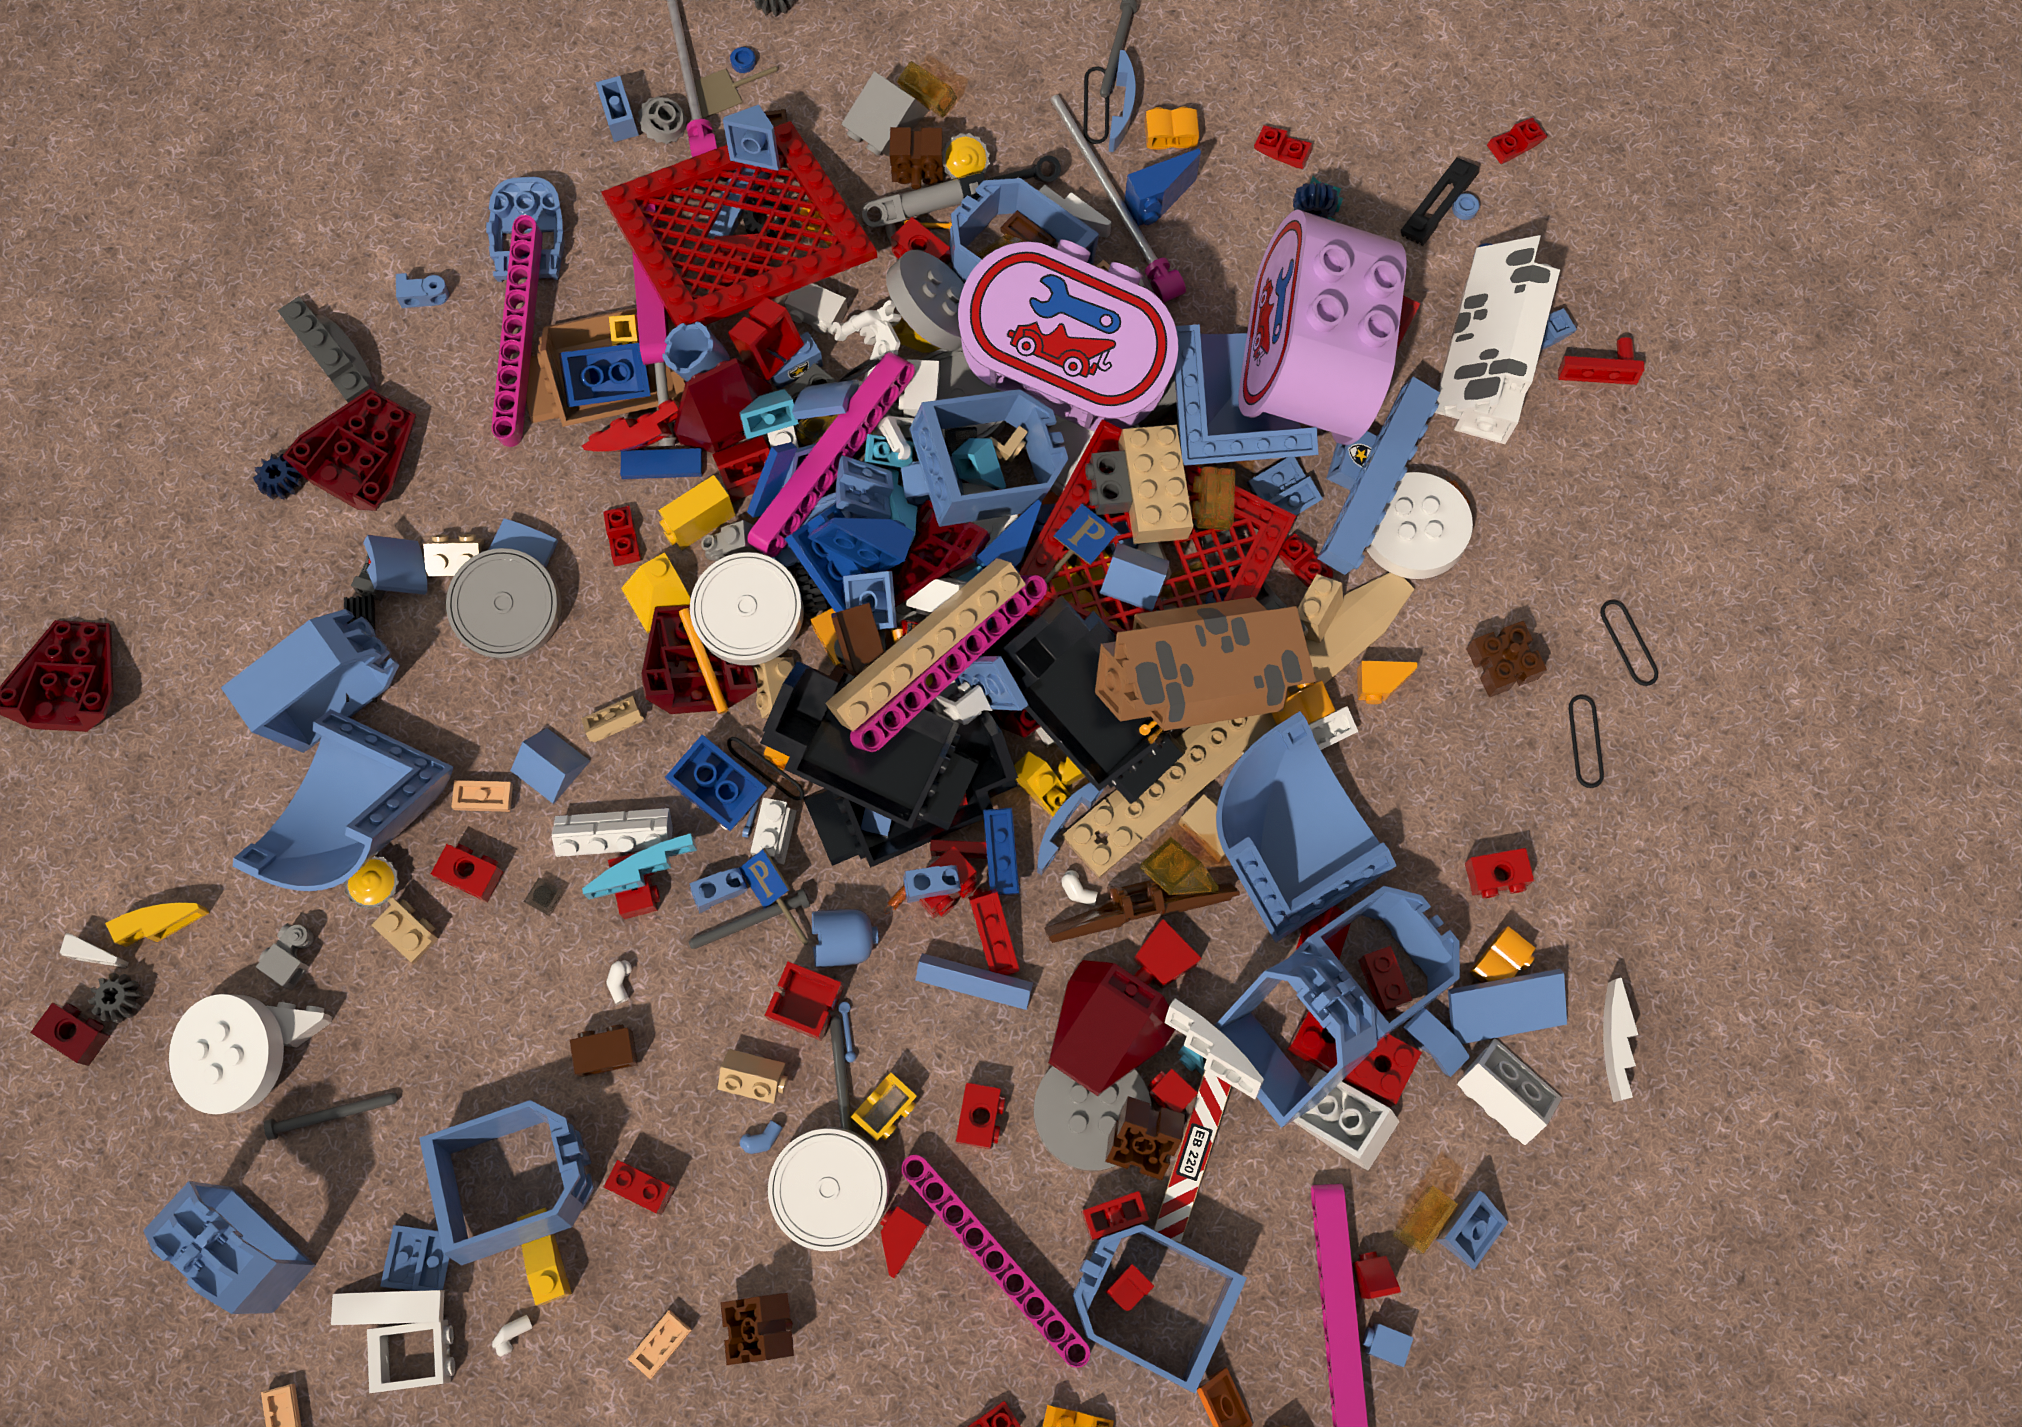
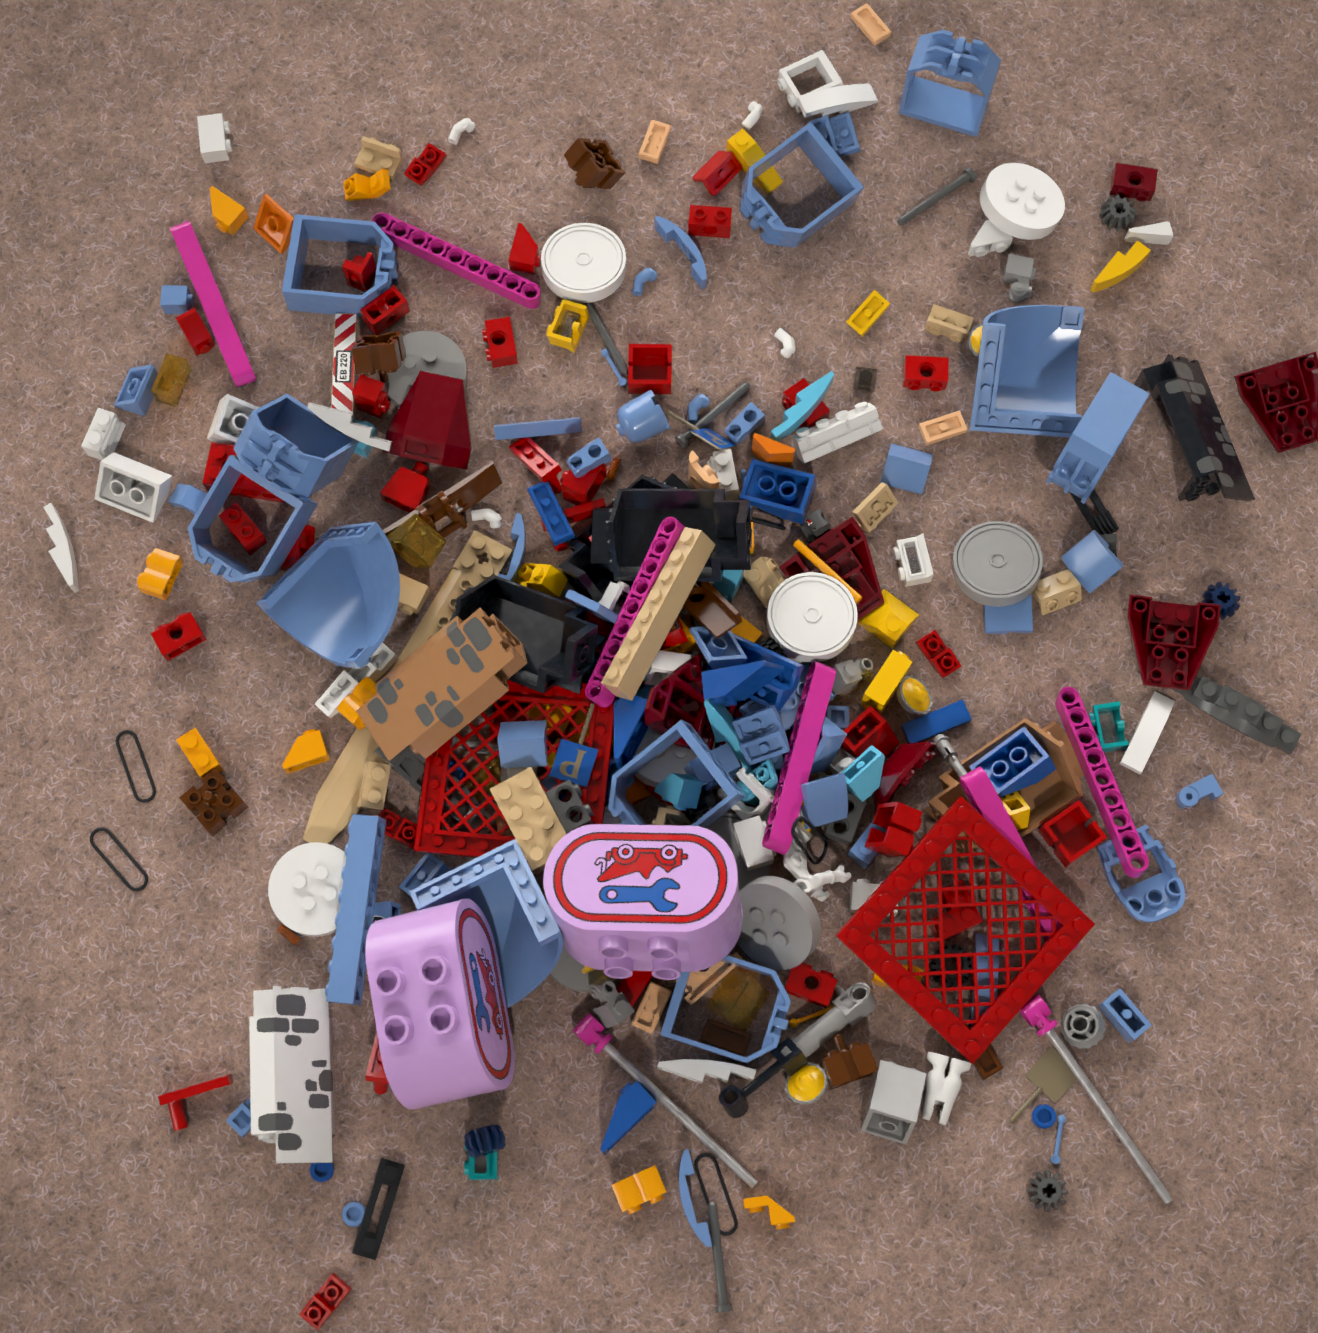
camera: 160 degrees right, 0 degrees up
(176, 712) = (1197, 428): none -> black panel
(438, 366) = (1147, 732): none -> white slope
(477, 387) = (1109, 726): none -> teal window
(498, 977) = (868, 313): none -> yellow plate
(575, 289) = (1070, 834): none -> red piece
(596, 1265) = (718, 171): none -> red panel
(597, 647) = (913, 561): none -> white window
(603, 1051) = (773, 291): reddish brown brick -> none
(635, 434) = (965, 727): red slope -> none
(669, 488) = (914, 695): none -> yellow piece
(683, 1122) = (671, 231): none -> medium blue slope
(691, 723) = (815, 526): none -> dark grey leg
(693, 350) = (938, 784): medium blue cylinder -> none
(703, 828) = (772, 451): none -> orange slope
(750, 23) = (1055, 1159): none -> medium blue hinge
(751, 138) = (988, 1012): medium blue slope -> none
(752, 1076) = (665, 311): tan brick -> none
(767, 939) = (693, 407): none -> medium blue arm
(772, 477) = (836, 716): blue tile -> none
(800, 820) = (701, 477): none -> light nougat piece
(829, 113) = (942, 1089): none -> white piece
(927, 89) = (867, 1139): clear yellow brick -> none
(1055, 77) = (777, 1215): none -> light orange slope
(1215, 498) = (481, 829): clear yellow brick -> none
(1279, 146) = (534, 1212): red slope -> none
(1508, 1006) = (147, 540): medium blue tile -> none
(1509, 718) = (198, 753): none -> light orange brick
(1532, 1177) = (103, 434): none -> white window

